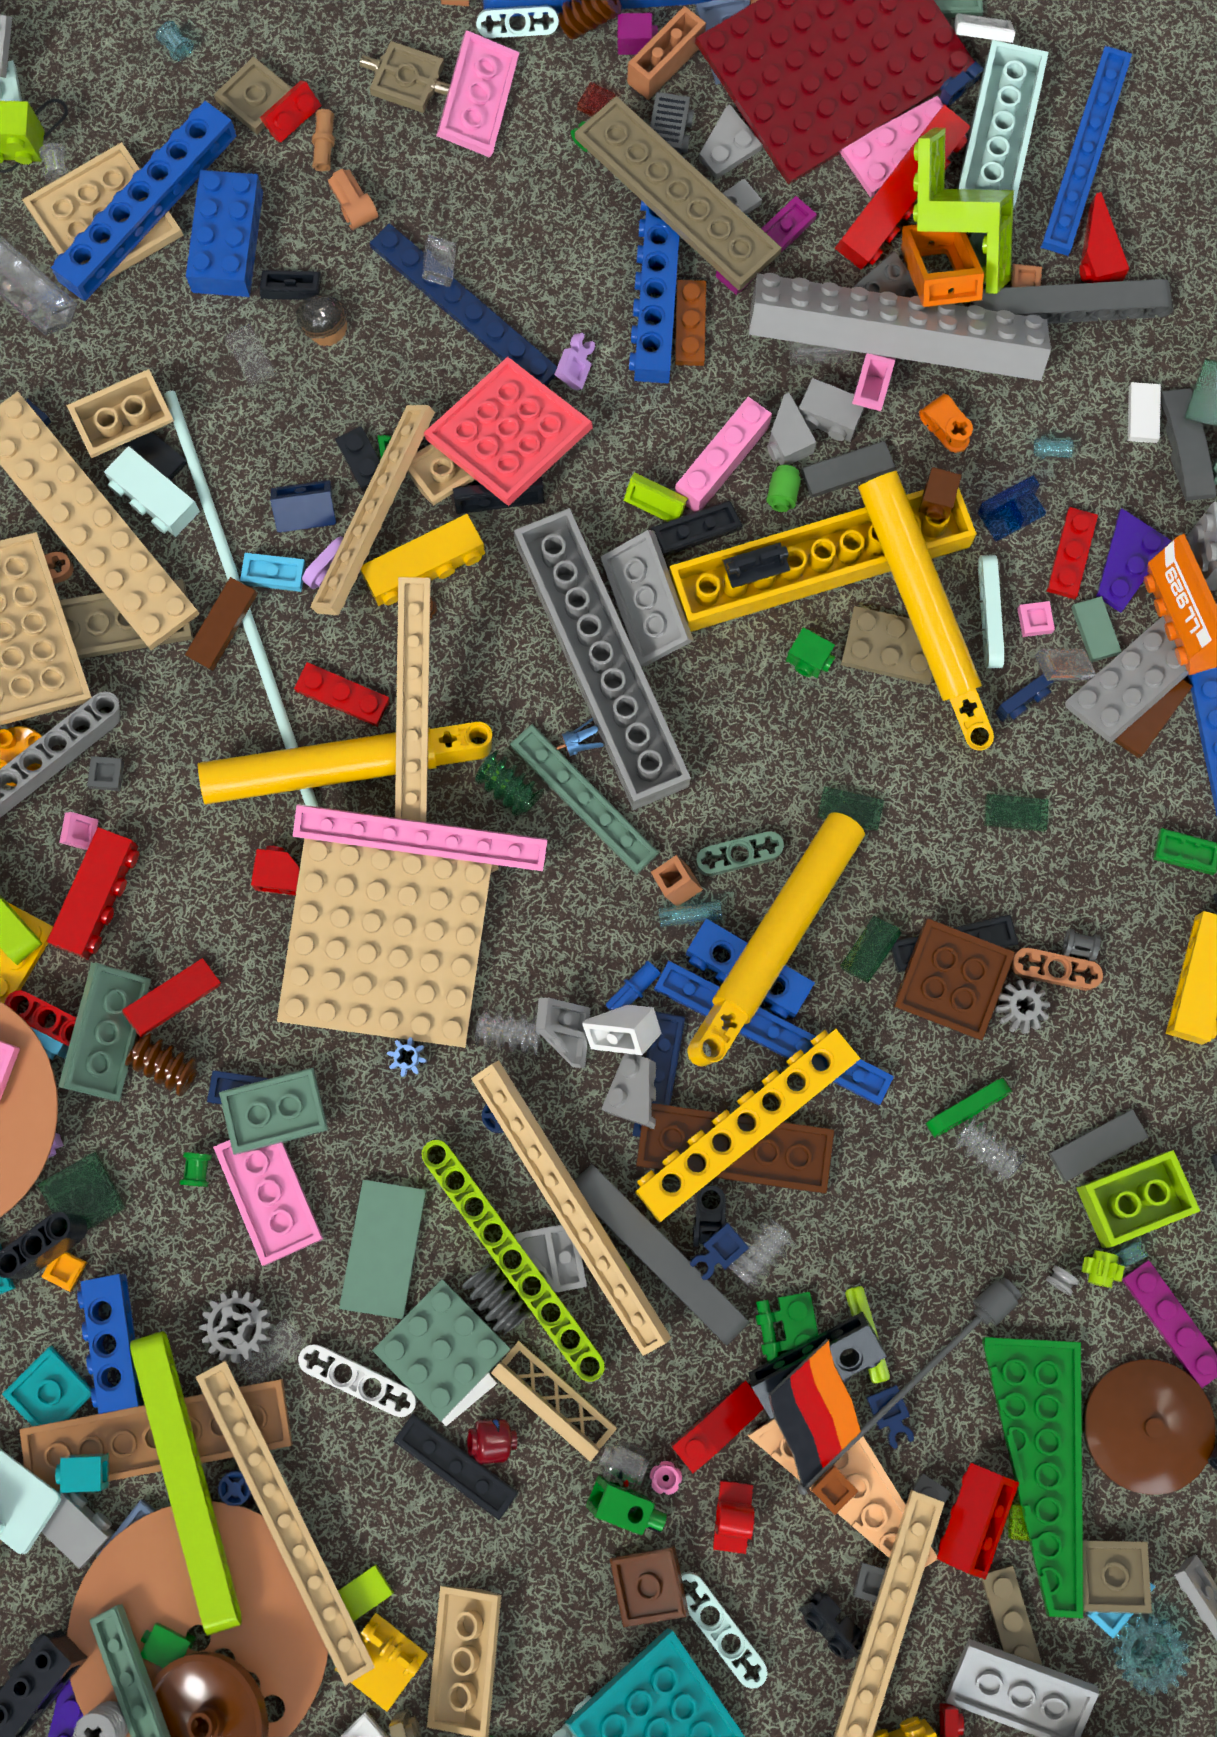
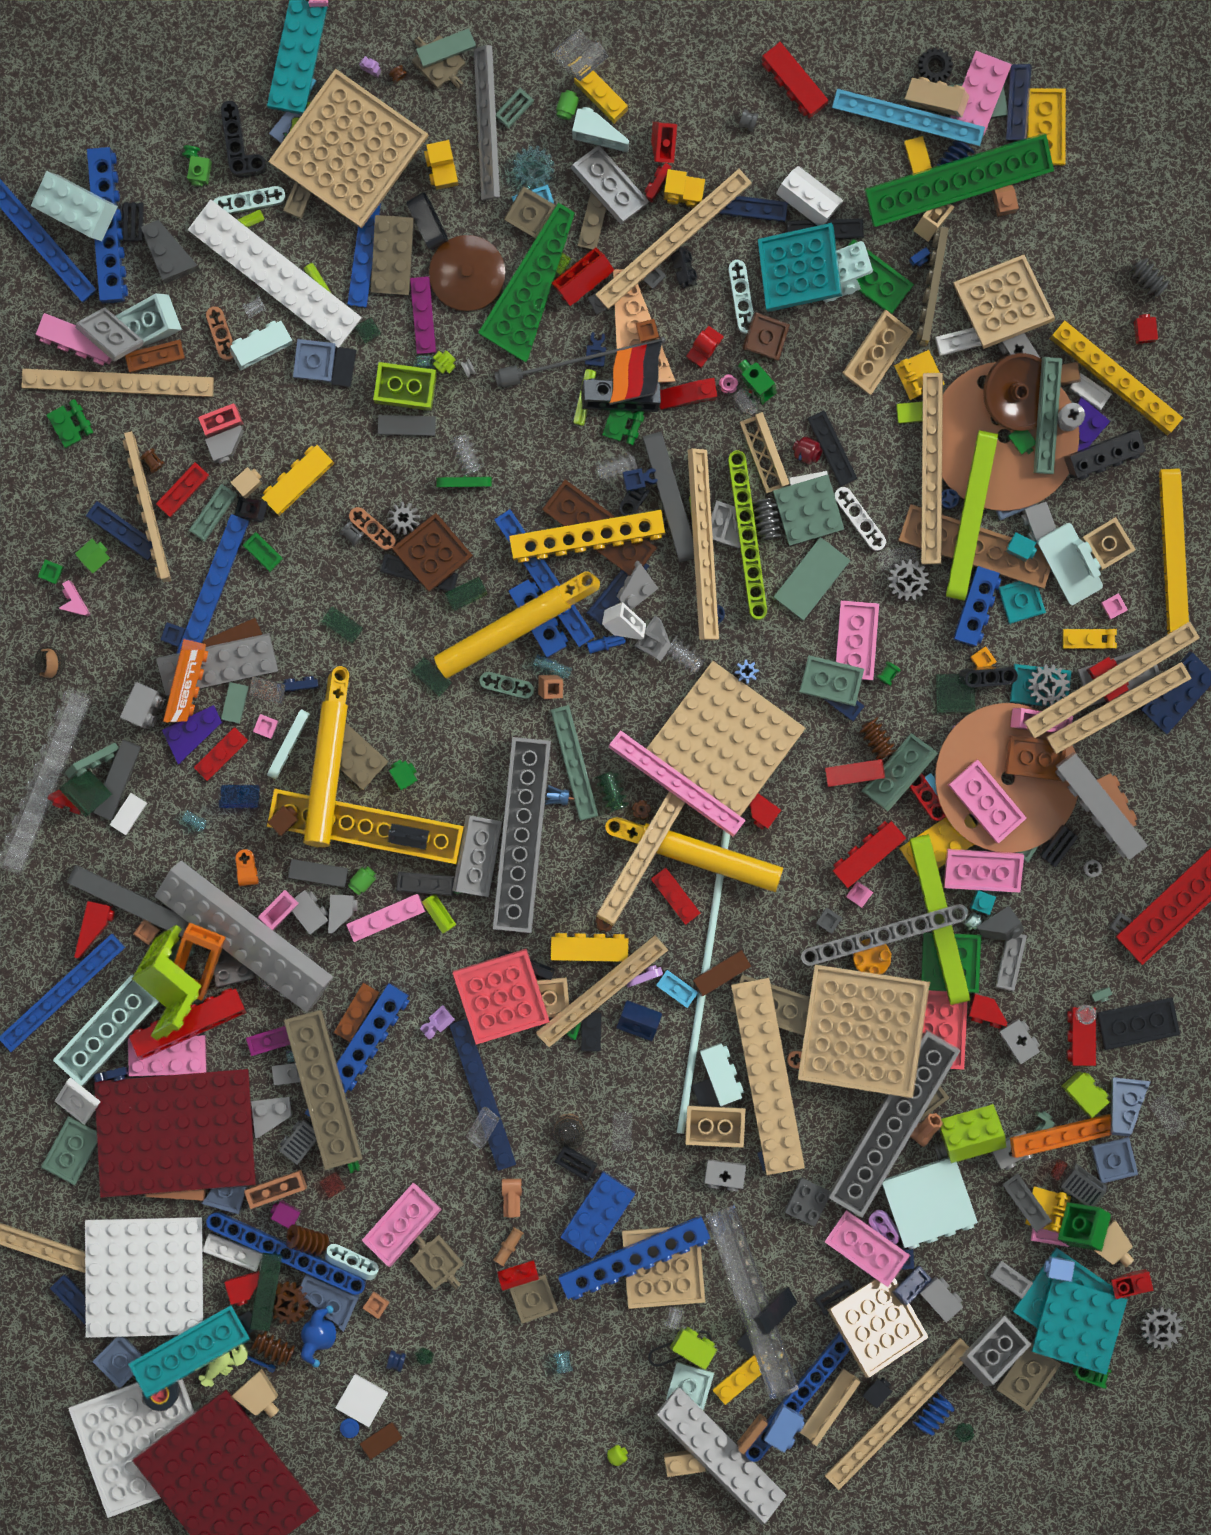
camera: 150 degrees left, 10 degrees up
(92, 374) = (716, 1167): none -> light grey brick
(453, 792) = (641, 814): none -> reddish brown plate

